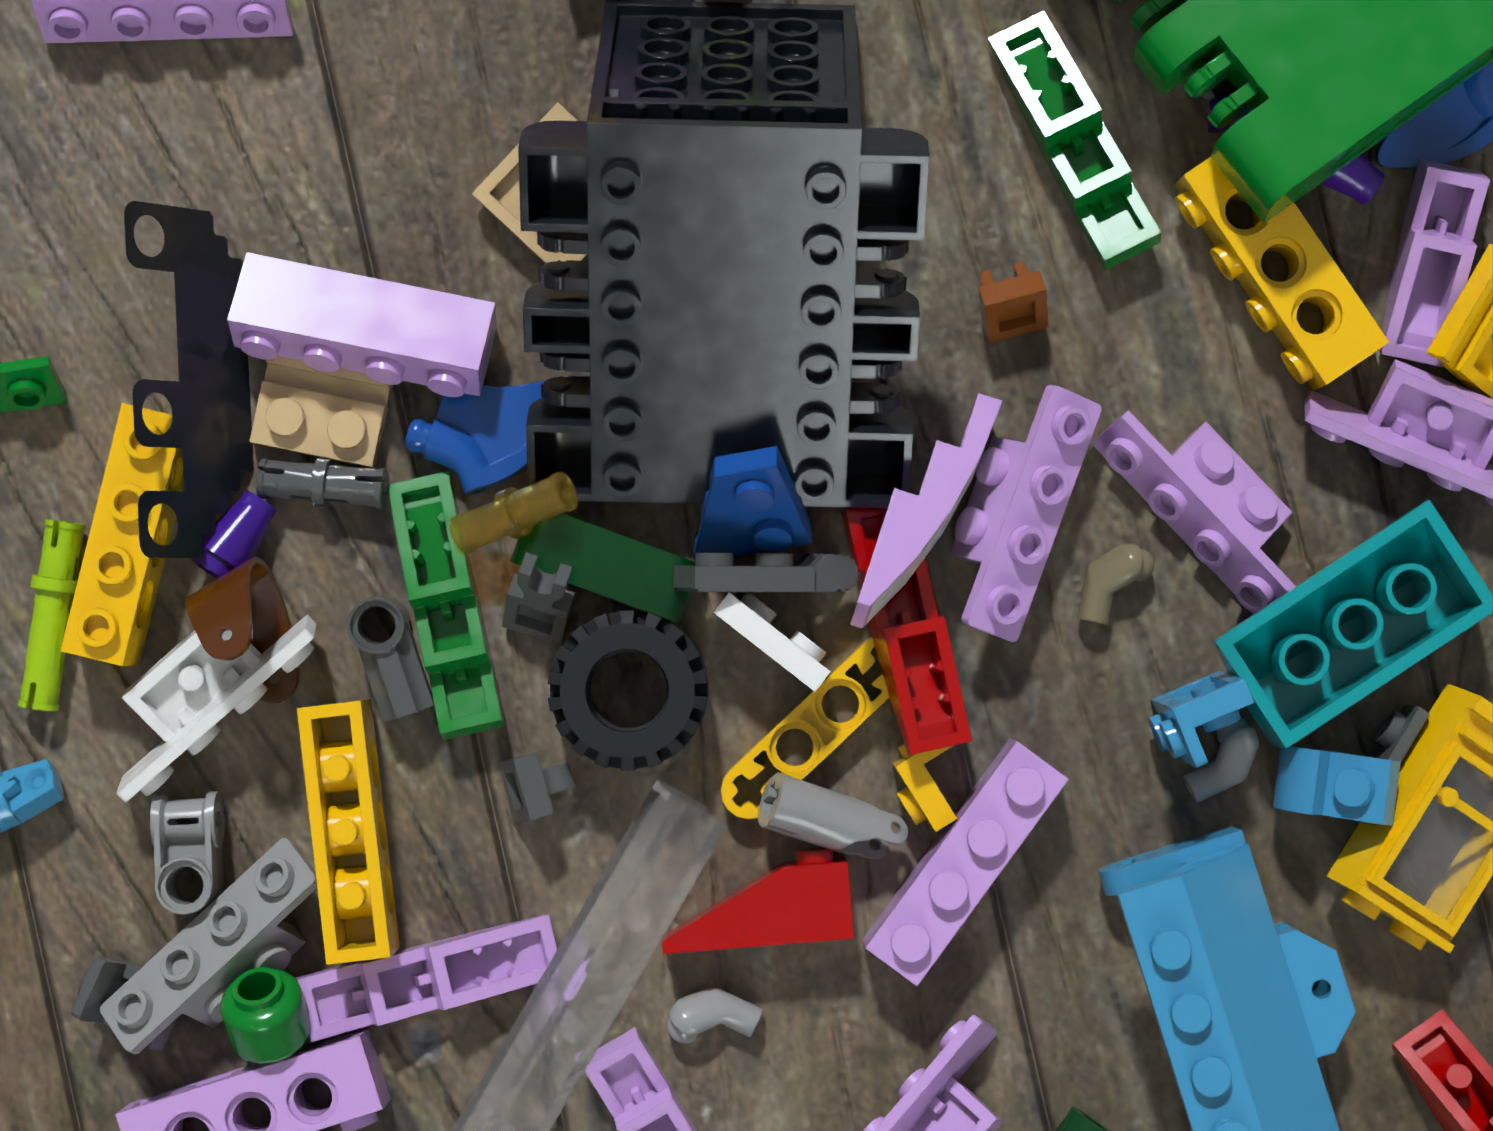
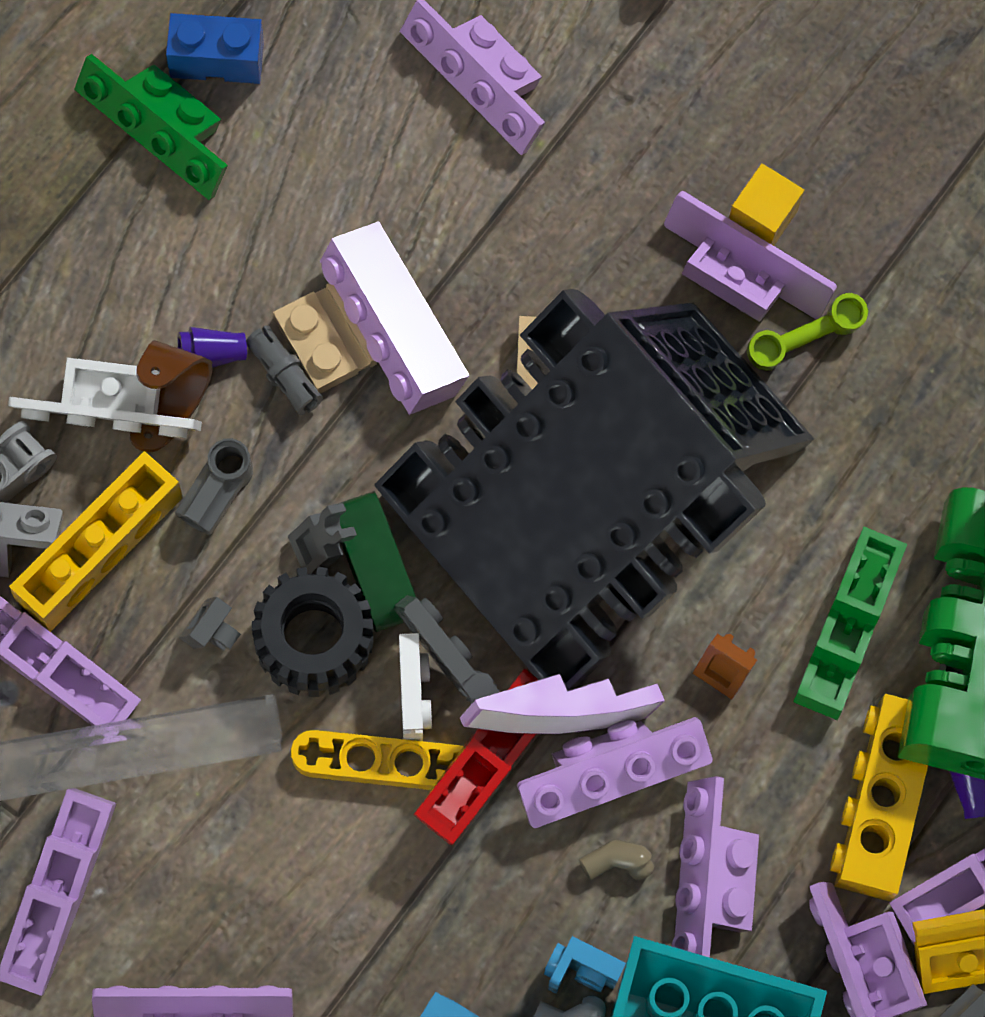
camera: 45 degrees right, 15 degrees down
(51, 609) = (73, 290): lime pin -> none
(115, 577) = (164, 289): yellow brick -> none
(213, 386) = (283, 267): black piece -> none
(445, 607) = (272, 494): green slope -> none
(478, 435) = (382, 431): blue arm -> none
(513, 512) = (359, 481): clear yellow pin -> none
(707, 1009) = (163, 837): light grey arm -> none
(751, 506) = (480, 608): blue wing -> none
(784, 906) = (258, 824): red slope -> none
(827, 818) = (336, 809): light grey piece -> none
(922, 796) = (395, 853): yellow bracket -> none
(964, 861) = (378, 909): lavender brick -> none

